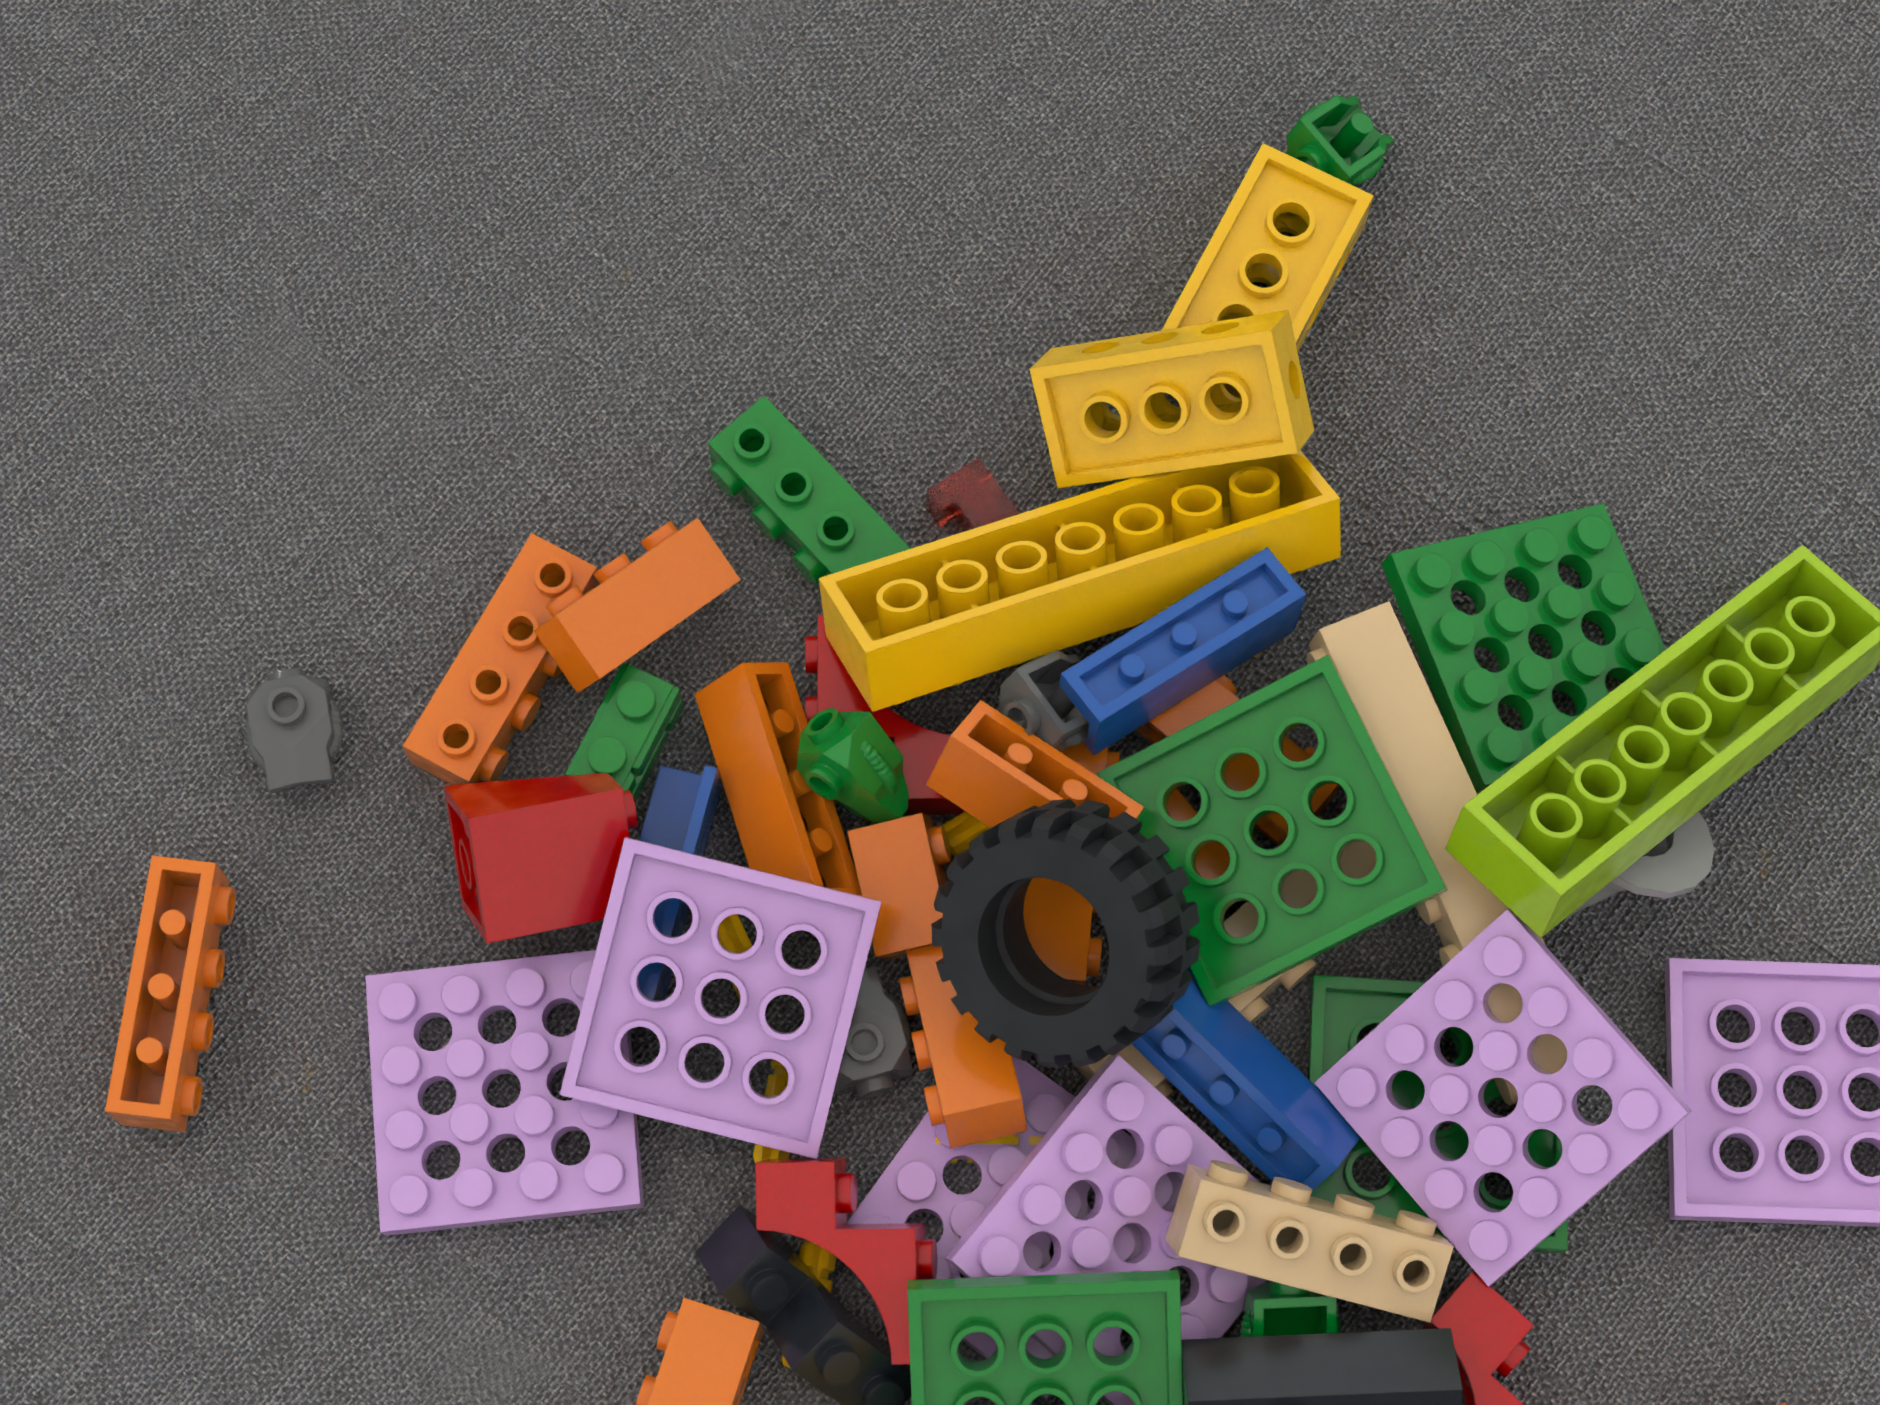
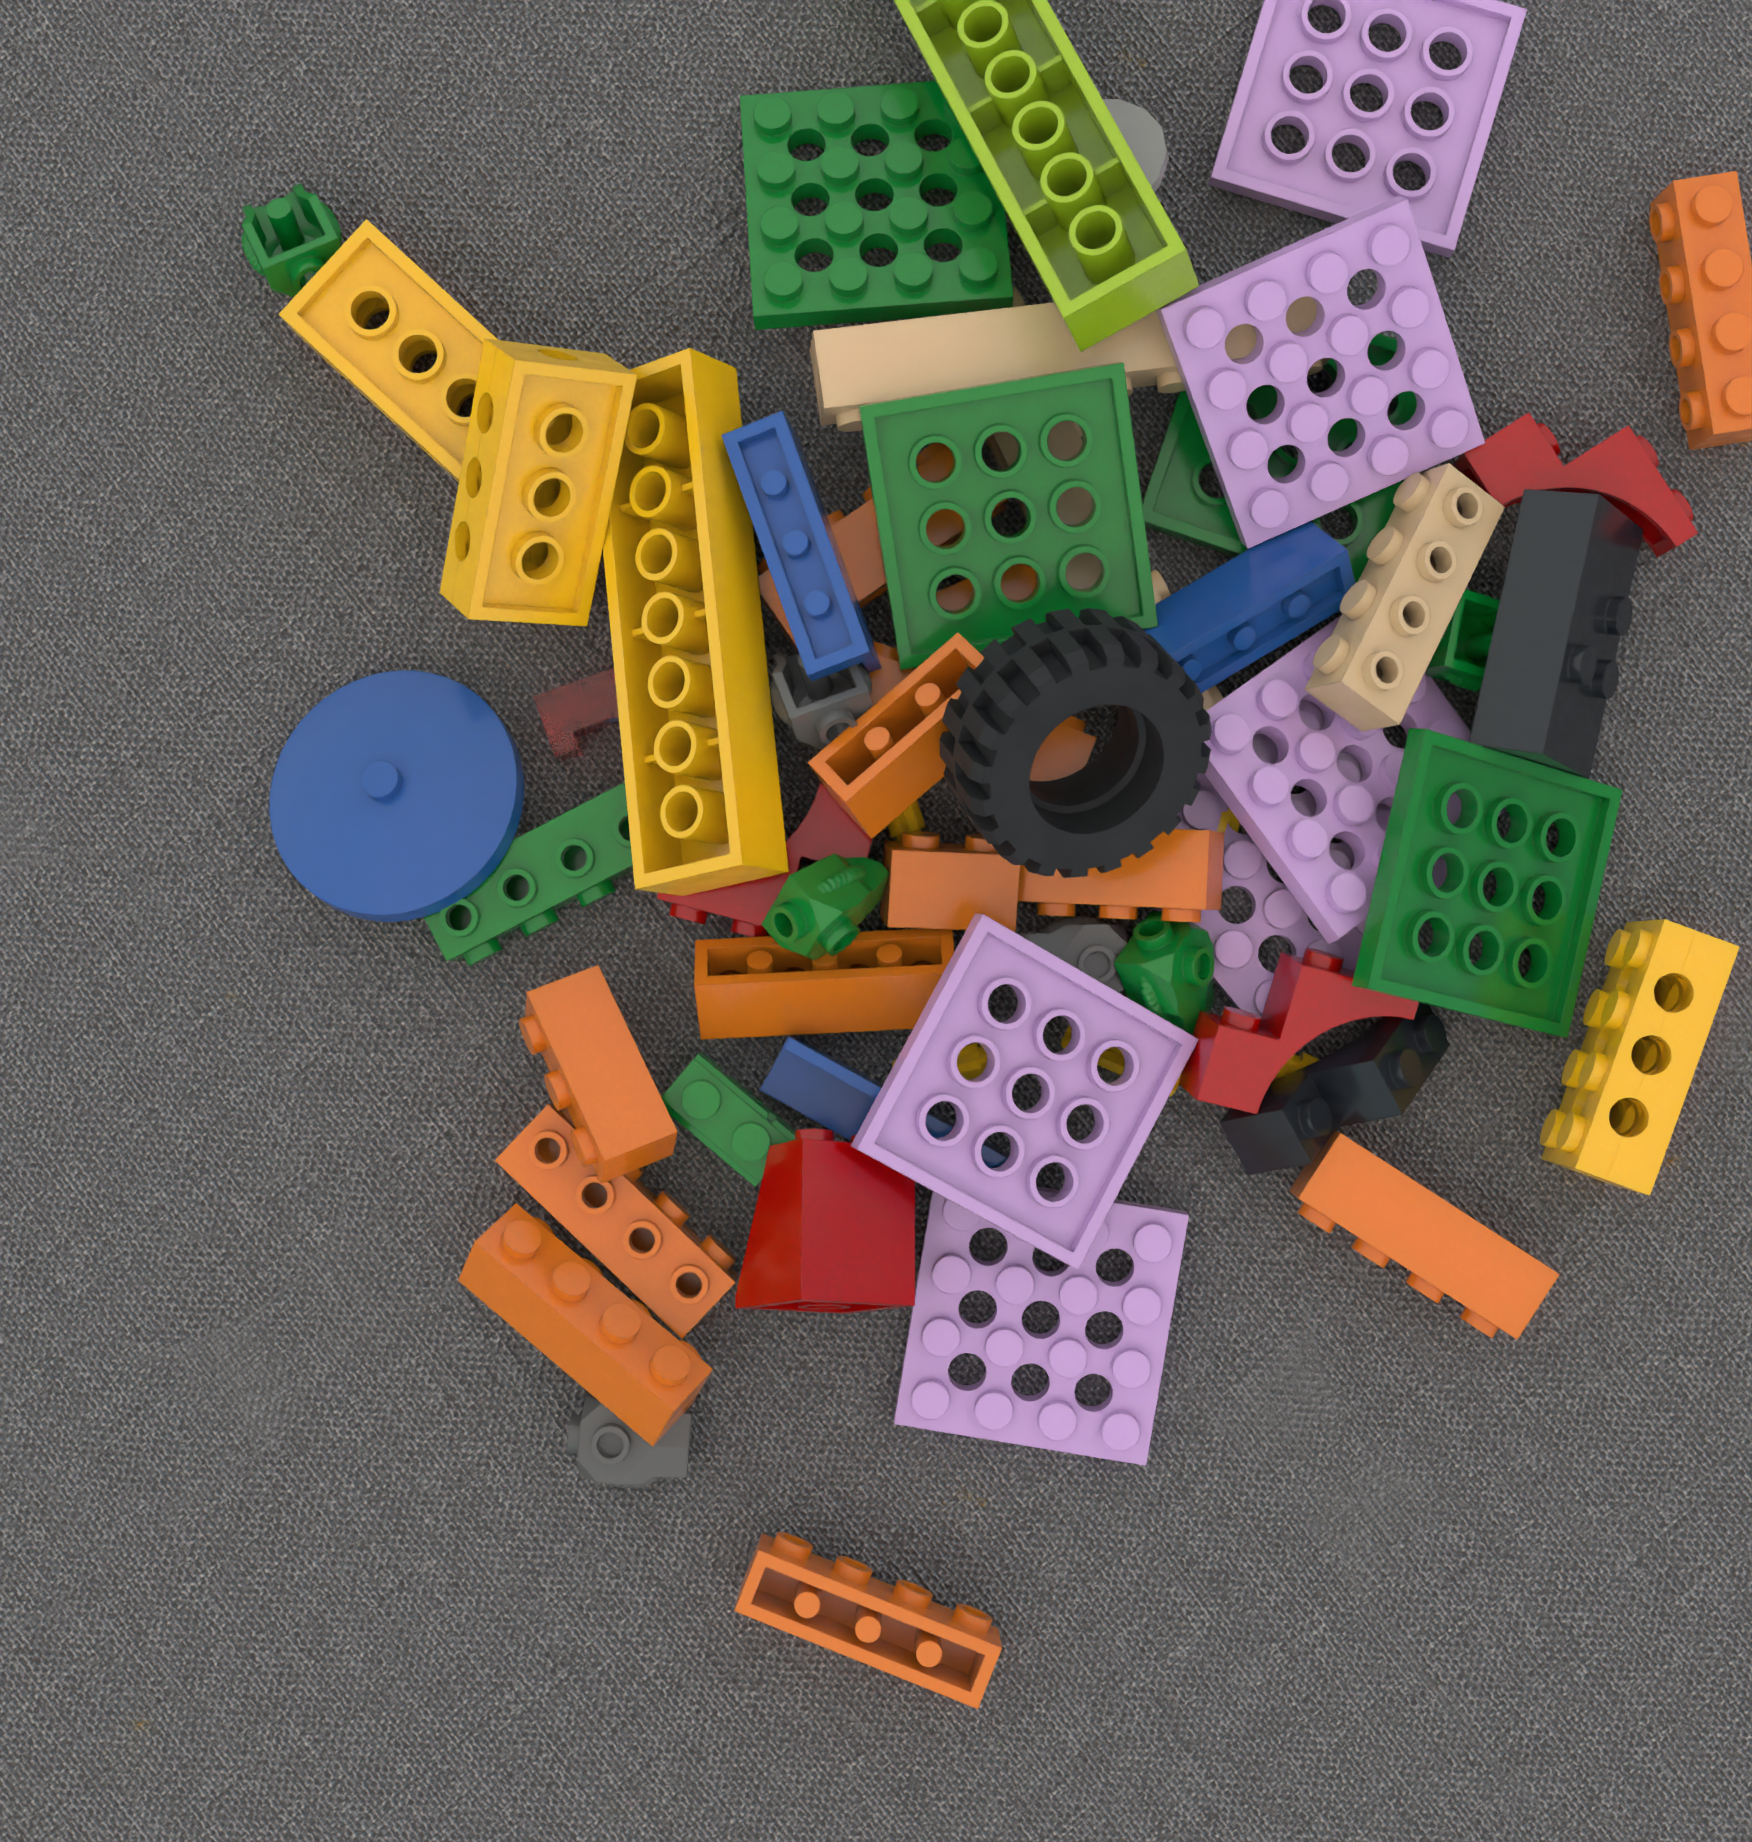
camera: 75 degrees left, 15 degrees up
(395, 654) = (584, 1323): none -> orange brick
(851, 363) = (396, 796): none -> blue dish
(876, 1118) = (1169, 969): none -> green hand

